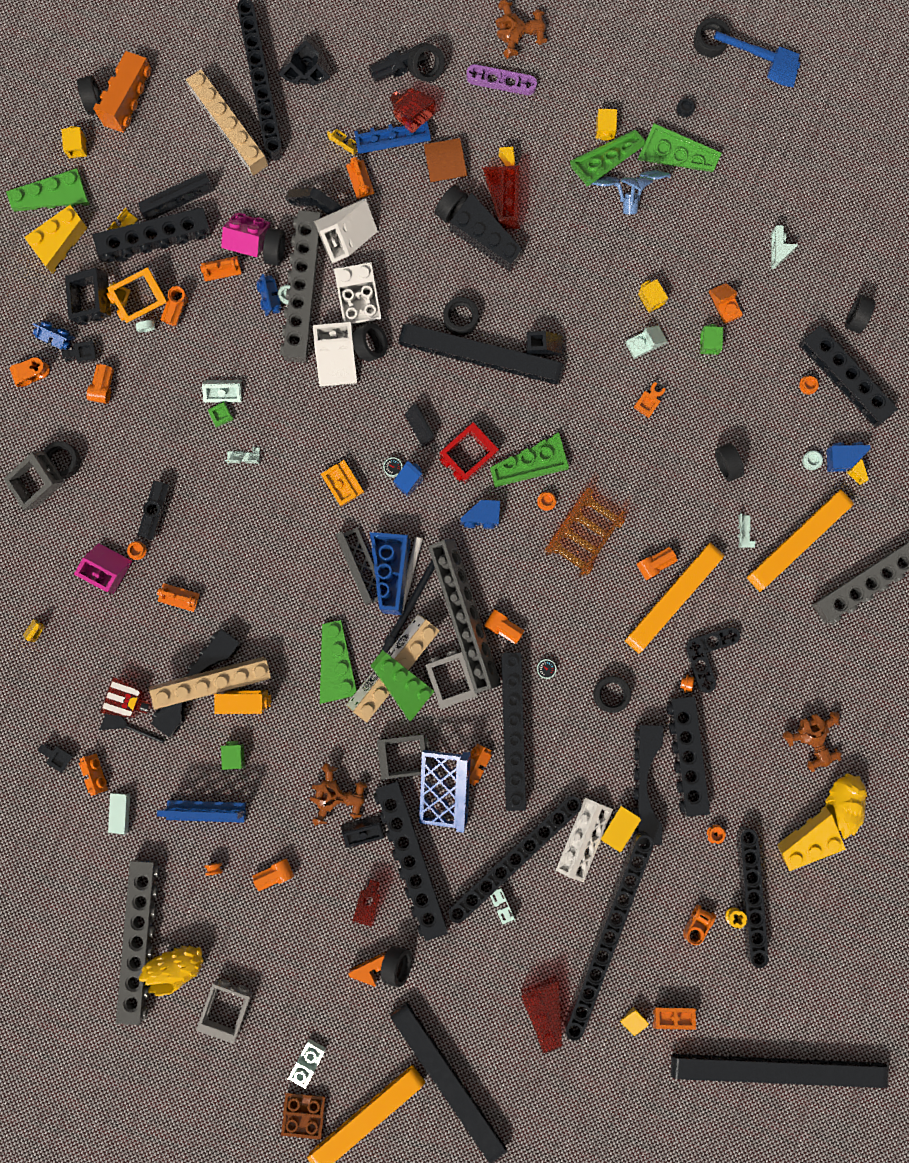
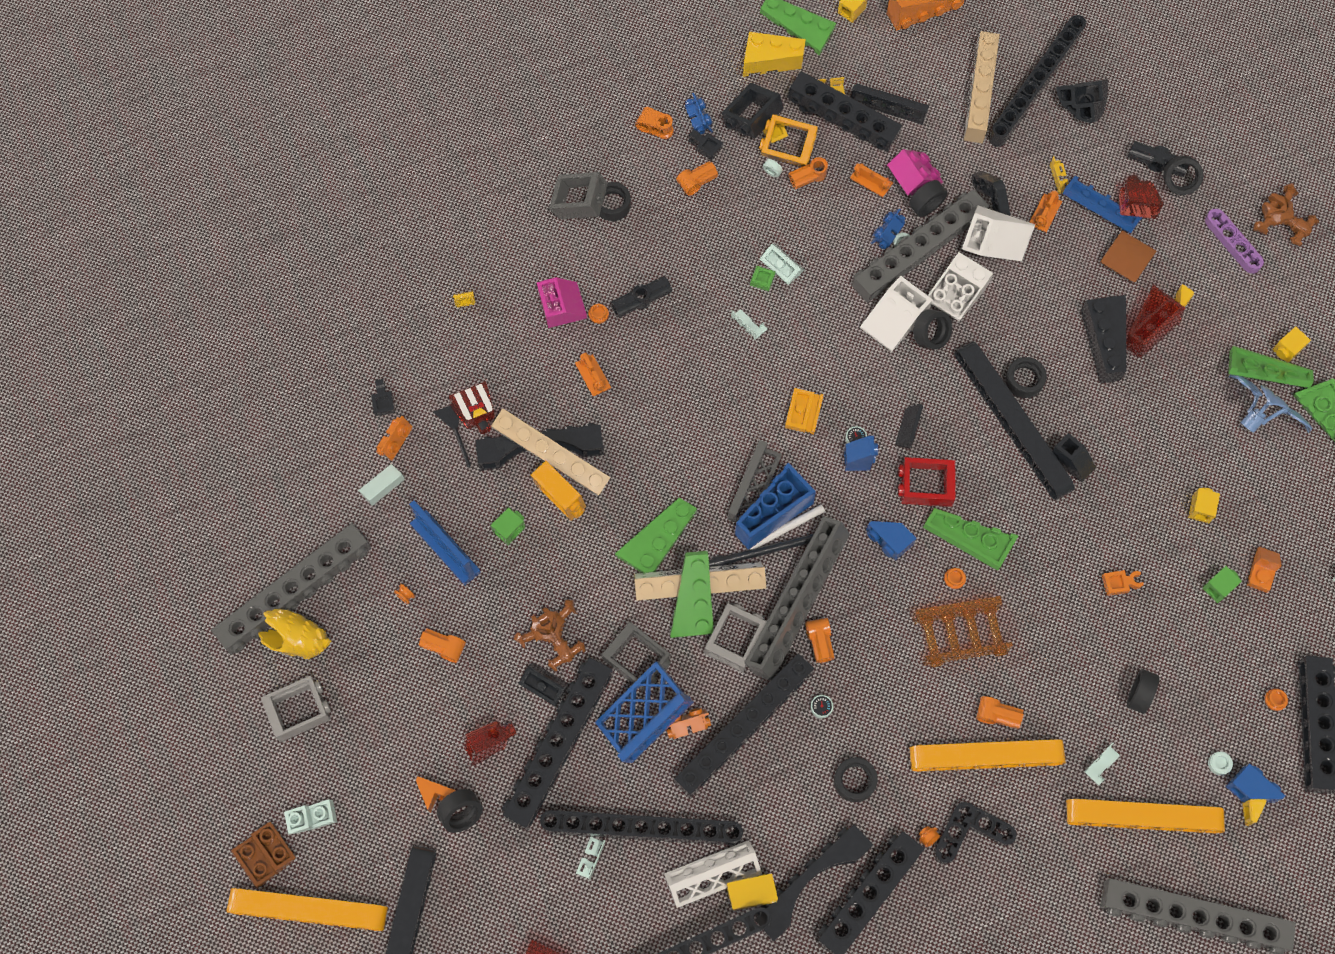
camera: 45 degrees right, 15 degrees down
(450, 203) = (1100, 287): black tyre -> none
(648, 340) = (1165, 536): light aqua slope -> none

